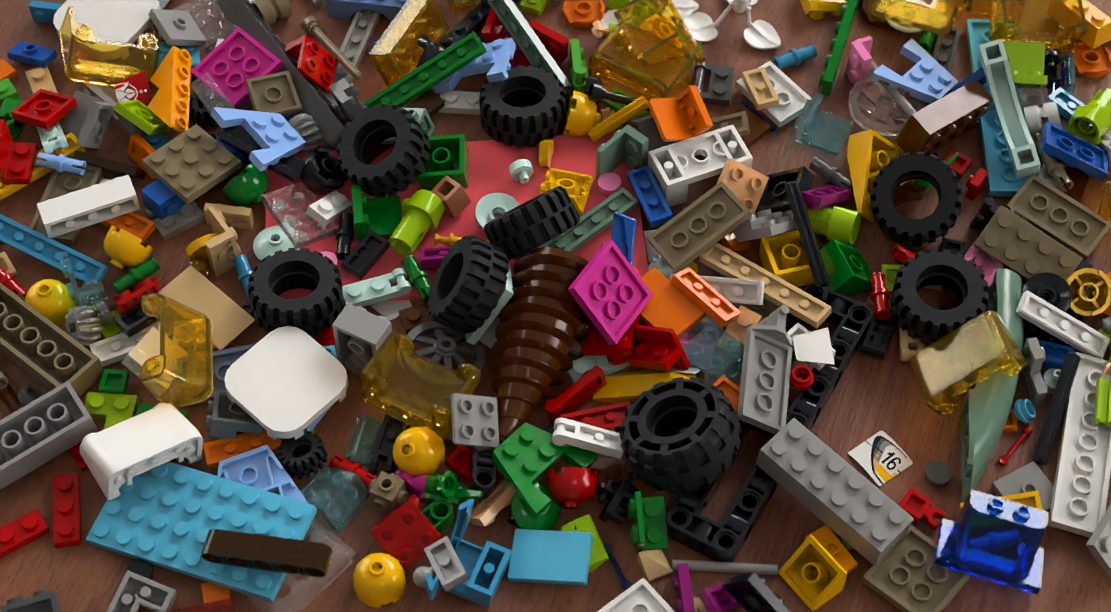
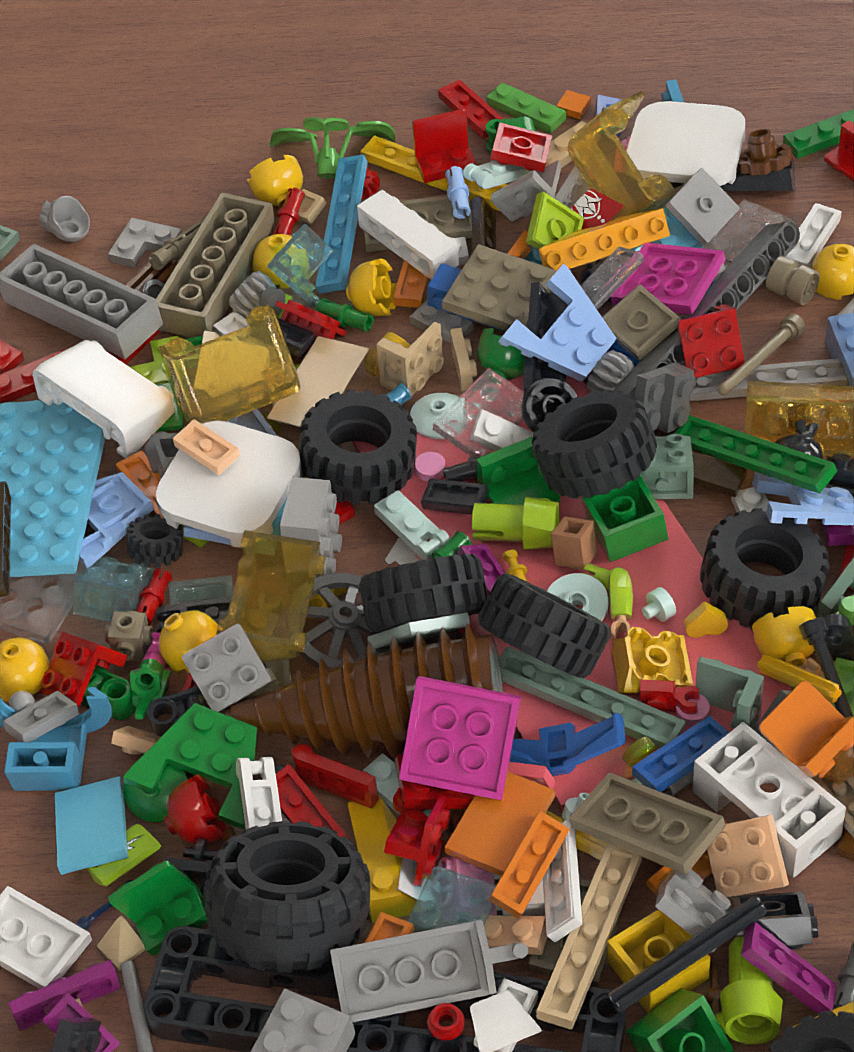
camera: 75 degrees right, 5 degrees down
(256, 380) = (206, 447): none -> light nougat plate
(501, 185) = (620, 592): none -> lime arm
(597, 191) = (665, 696): none -> red plate
(636, 214) = (638, 751): none -> clear neon green tile

